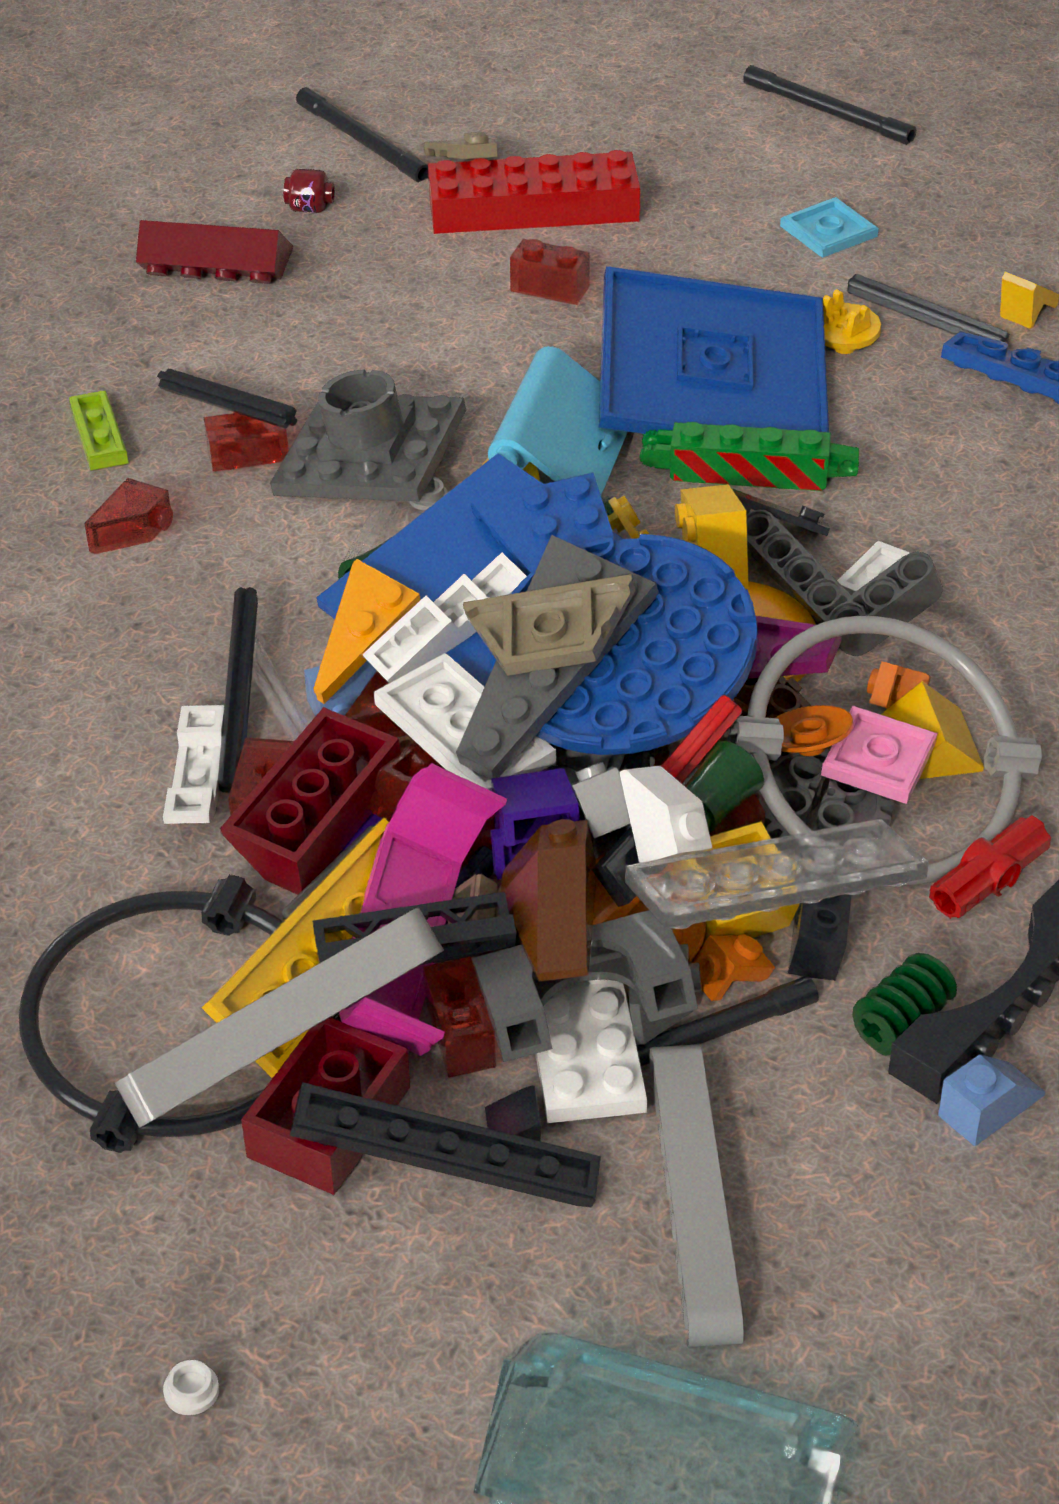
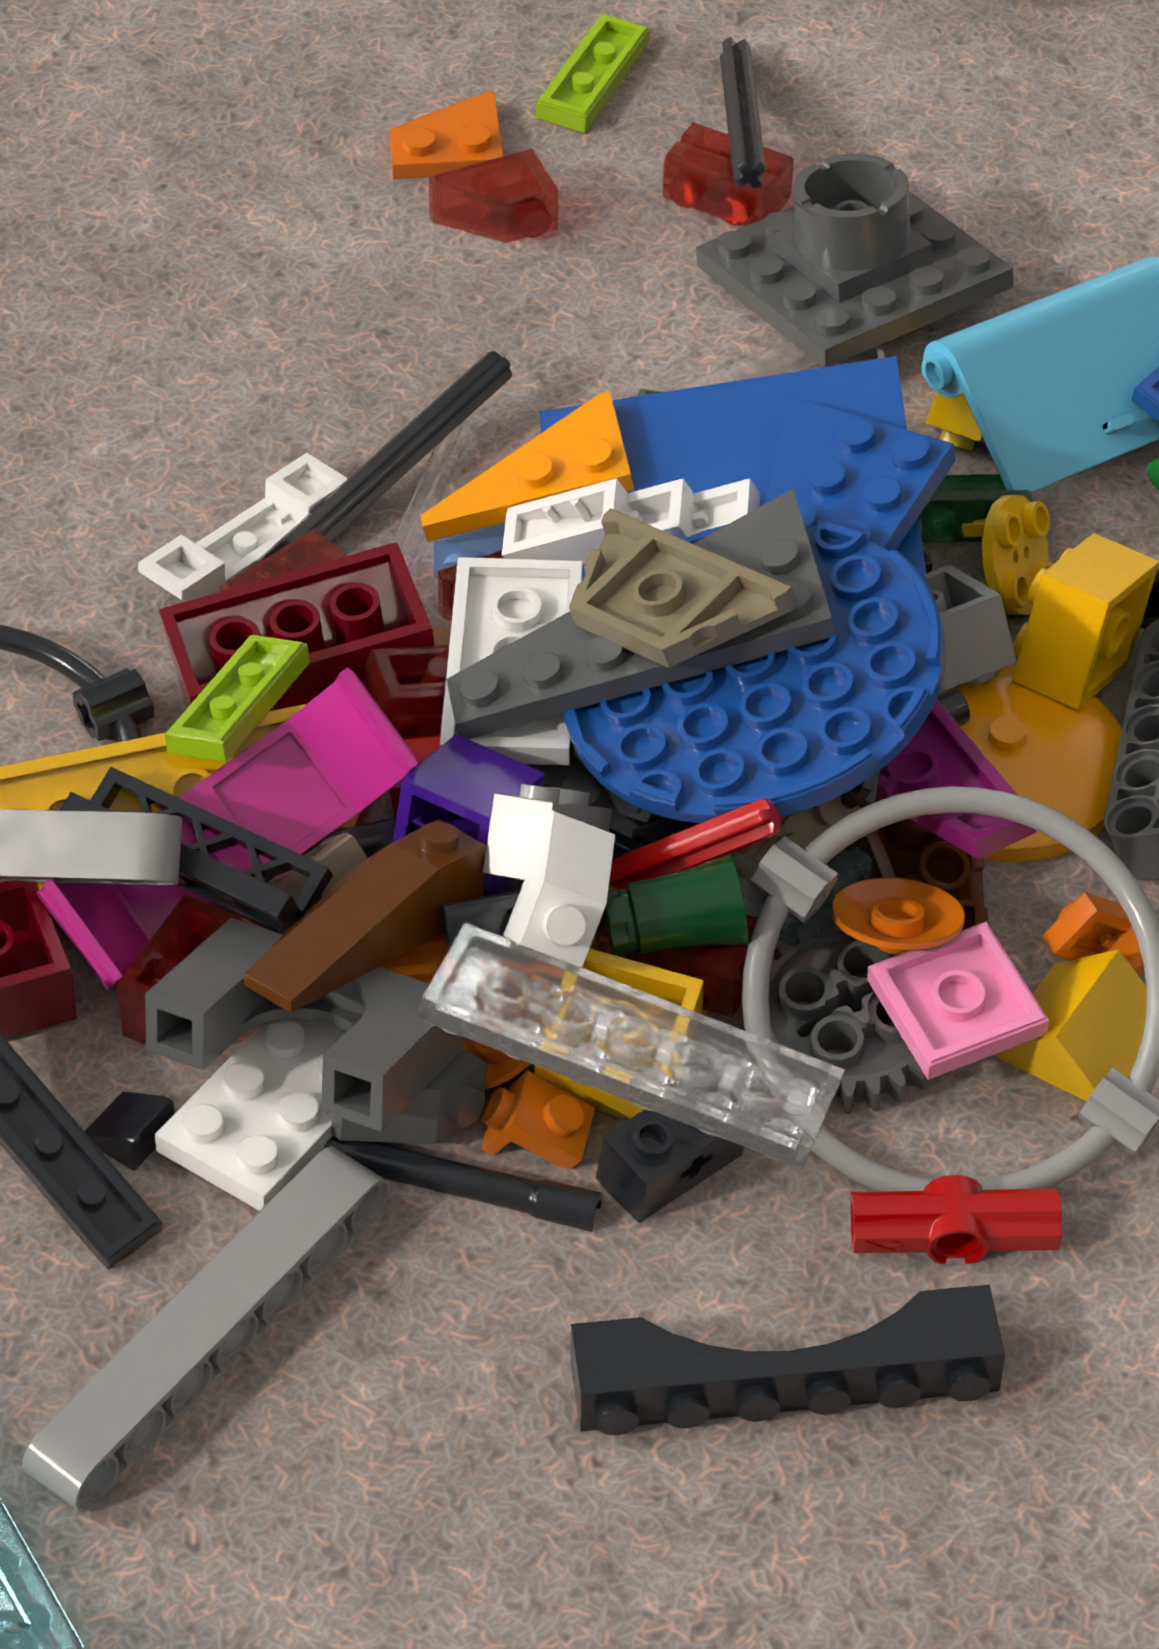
camera: 40 degrees right, 5 degrees up
(57, 506) = (447, 138): none -> orange wing
(345, 837) = (237, 698): none -> lime tile
(911, 990) = (658, 1290): dark green piece -> none
(985, 1097) = (631, 1459): medium blue slope -> none

